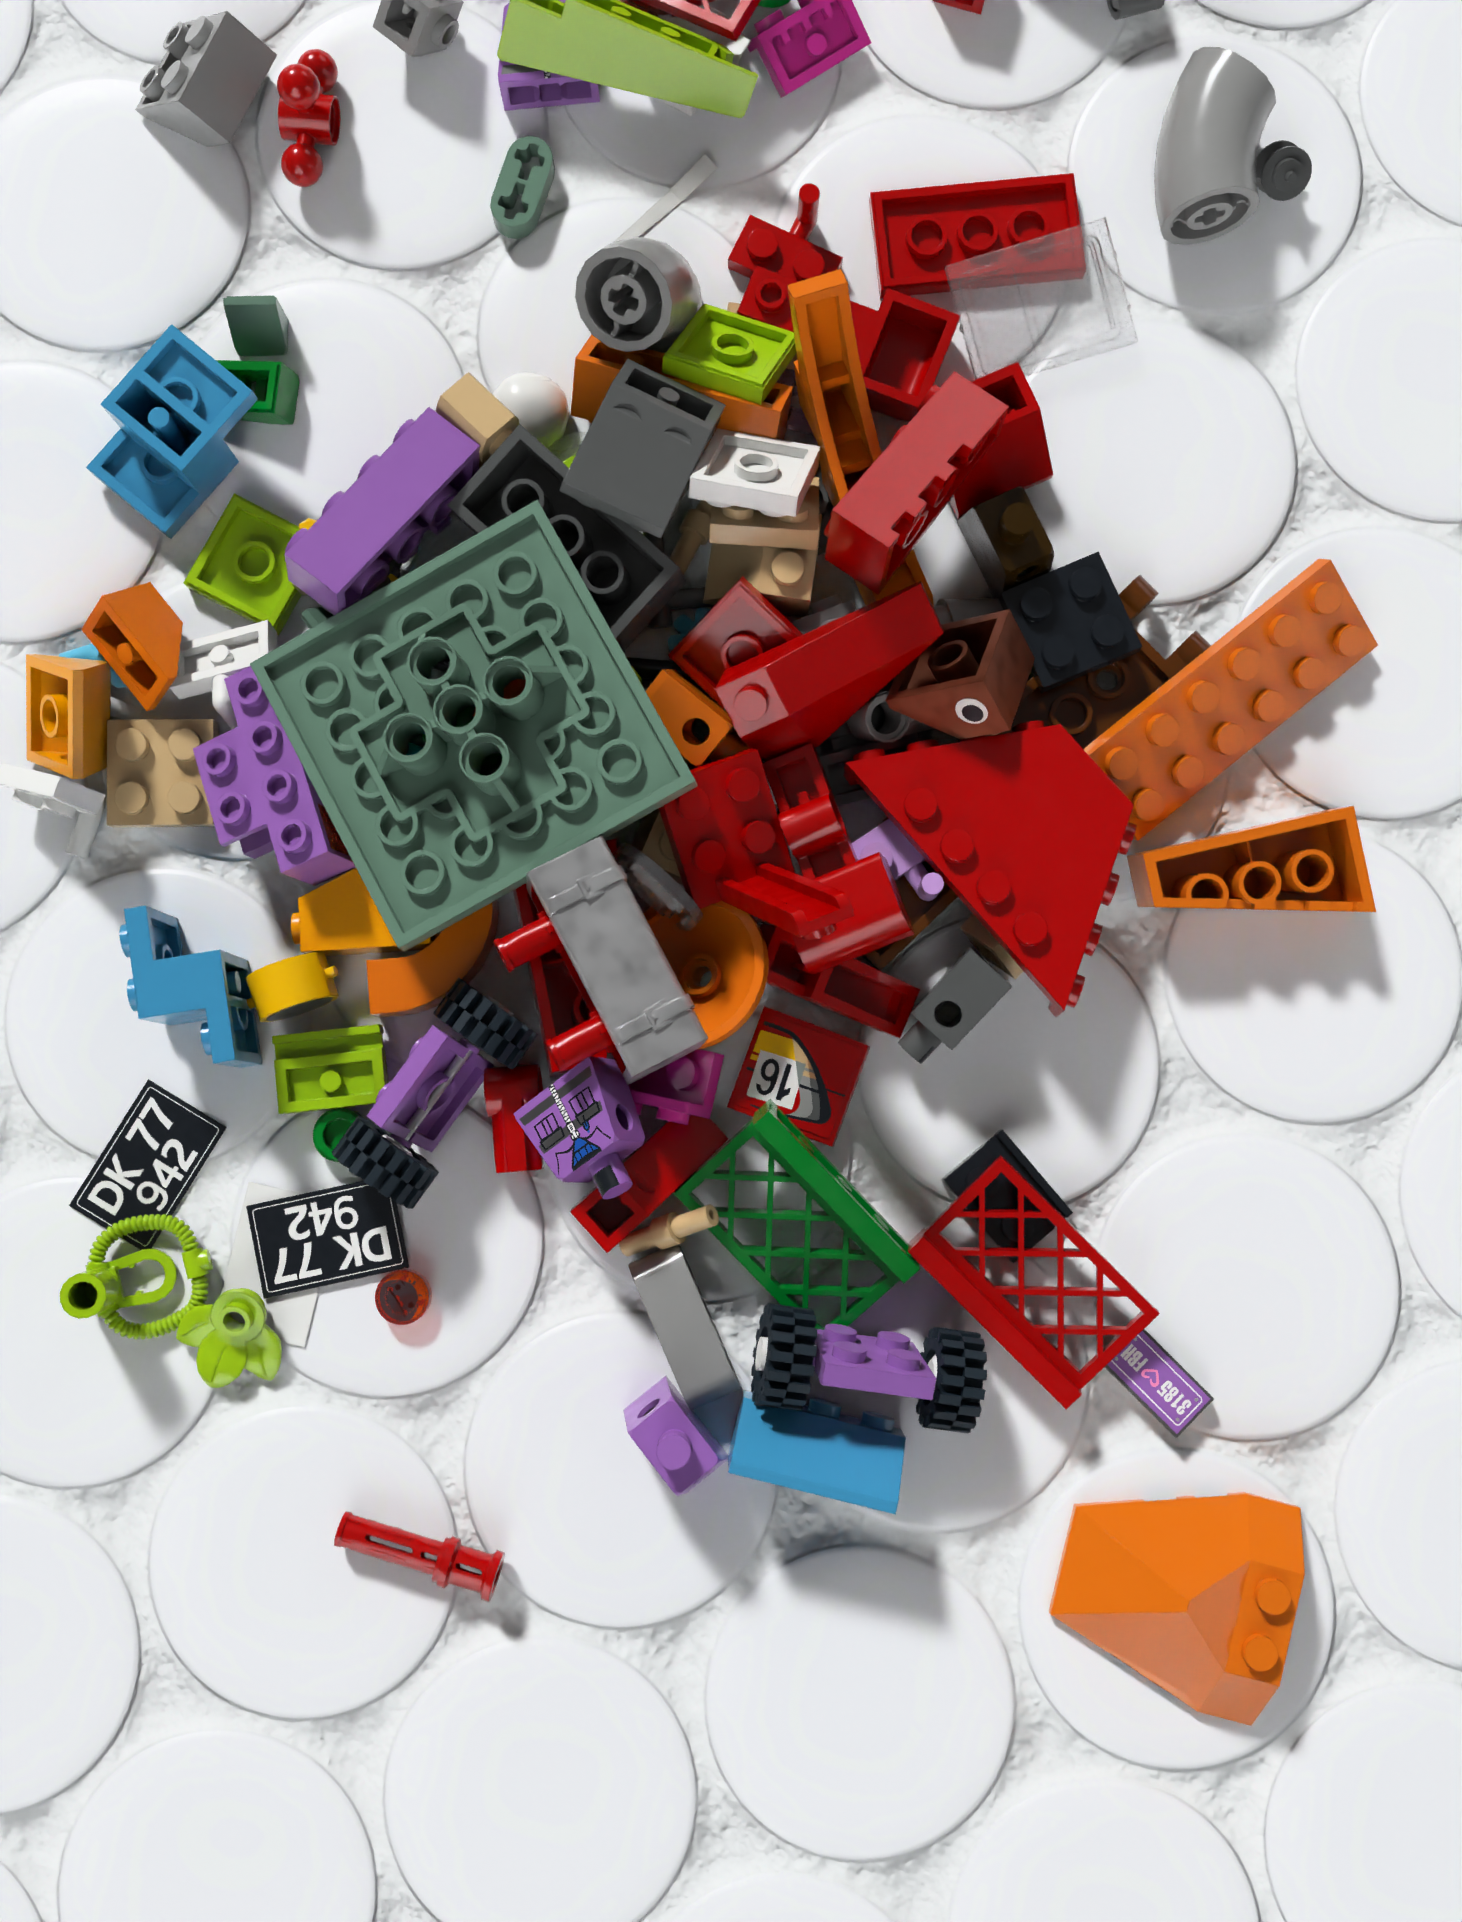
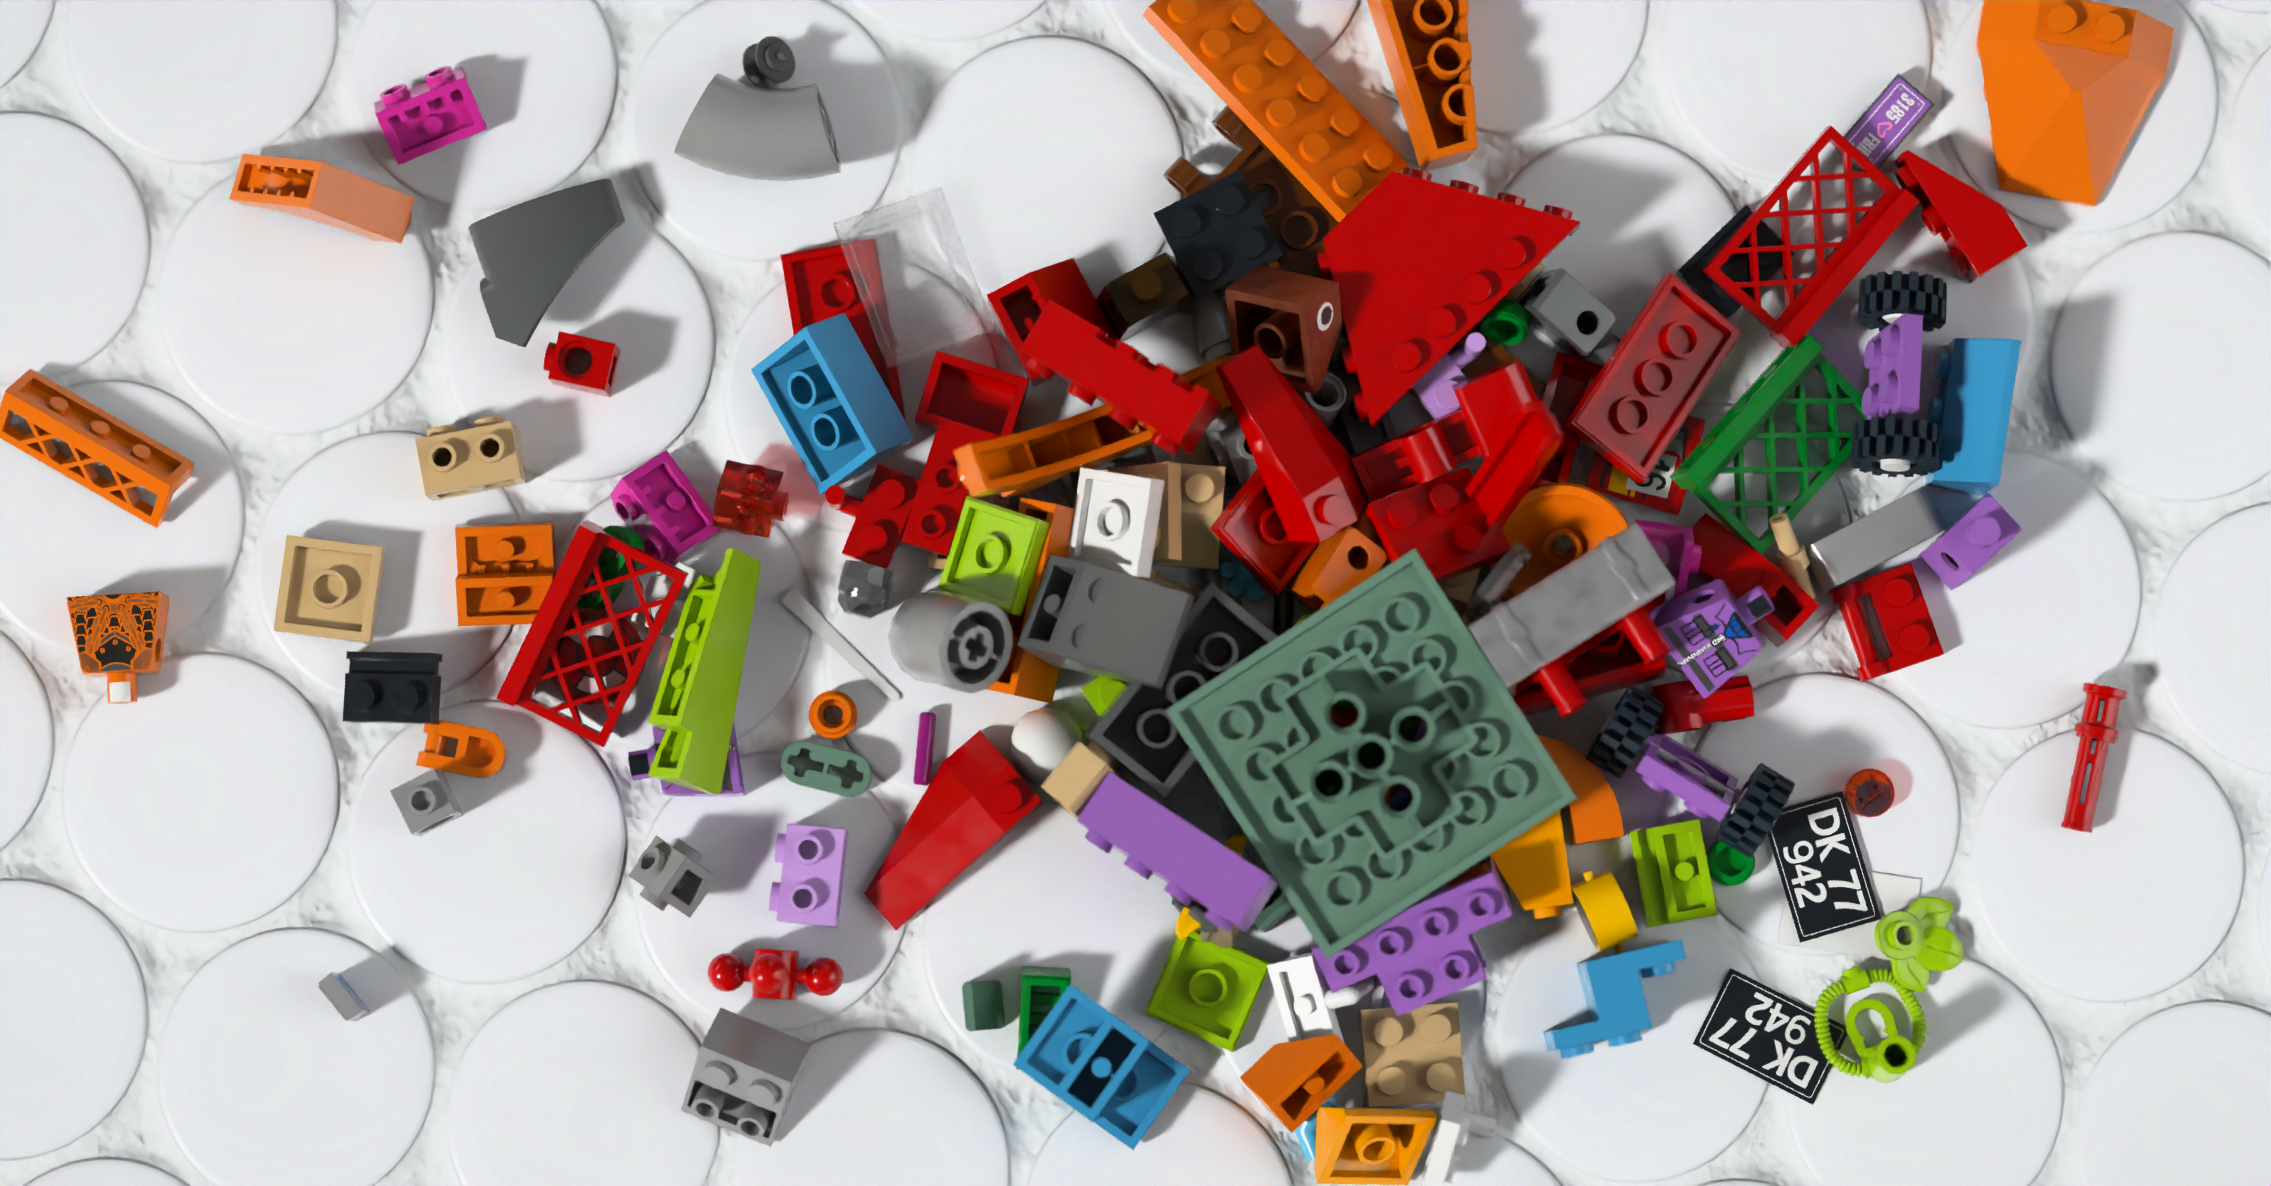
camera: 90 degrees left, 0 degrees up
(408, 159) = (810, 875): none -> lavender brick
(448, 309) = (957, 821): none -> red wedge
(536, 290) = (924, 748): none -> magenta piece
(579, 183) = (822, 703): none -> orange plate
(596, 1349) = (1901, 617): none -> red plate
(709, 231) = (864, 589): none -> dark grey rock
(813, 115) = (749, 499): none -> clear red brick
(880, 1089) = (1653, 378): none -> red tile
(913, 205) = (832, 402): none -> dark azure slope
(954, 928) = (1506, 323): none -> green tile
(1039, 1466) = (1969, 222): none -> red slope

